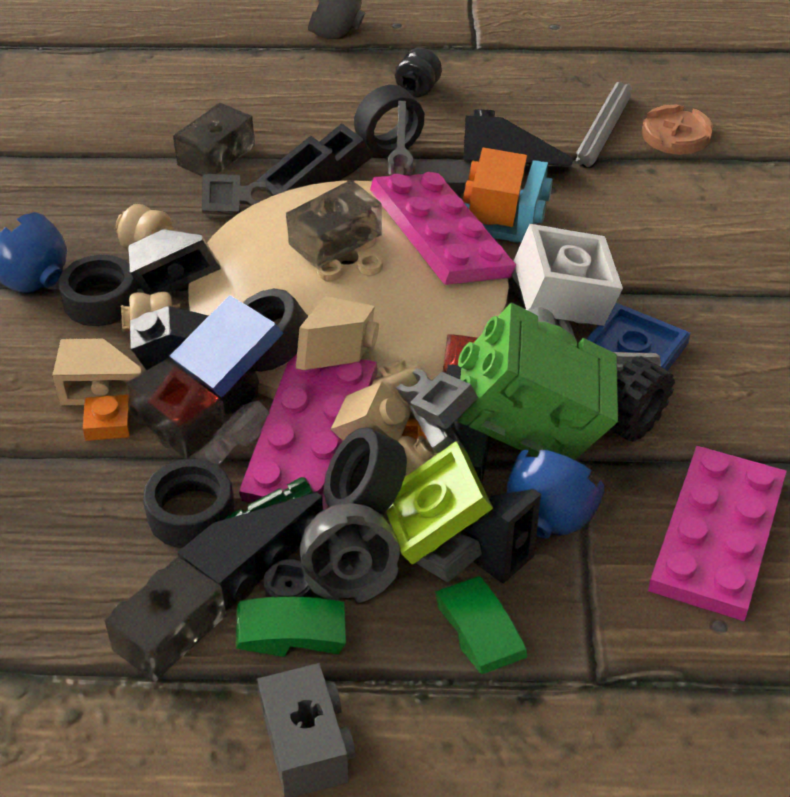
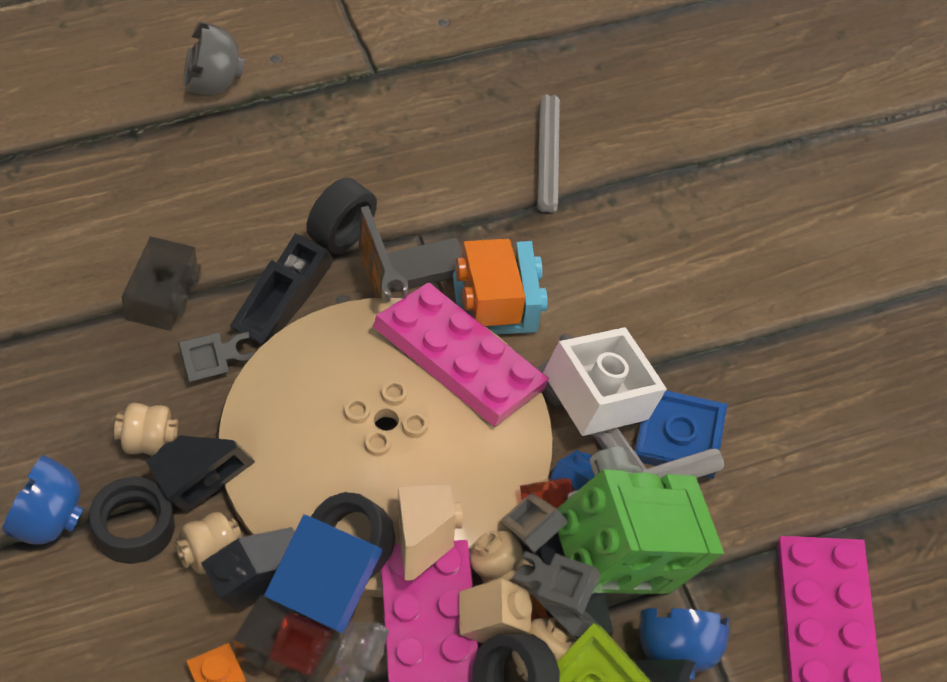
camera: 25 degrees left, 10 degrees up
(91, 370) = (184, 628): tan slope -> none
(334, 223) = (367, 392): clear smoke brick -> none
(418, 71) = (336, 131): black piece -> none
(440, 353) = (533, 521): none -> dark grey tile
(497, 133) = (460, 214): black slope -> none
(641, 397) = (721, 496): black tyre -> none
(677, 130) = (620, 142): nougat tile -> none

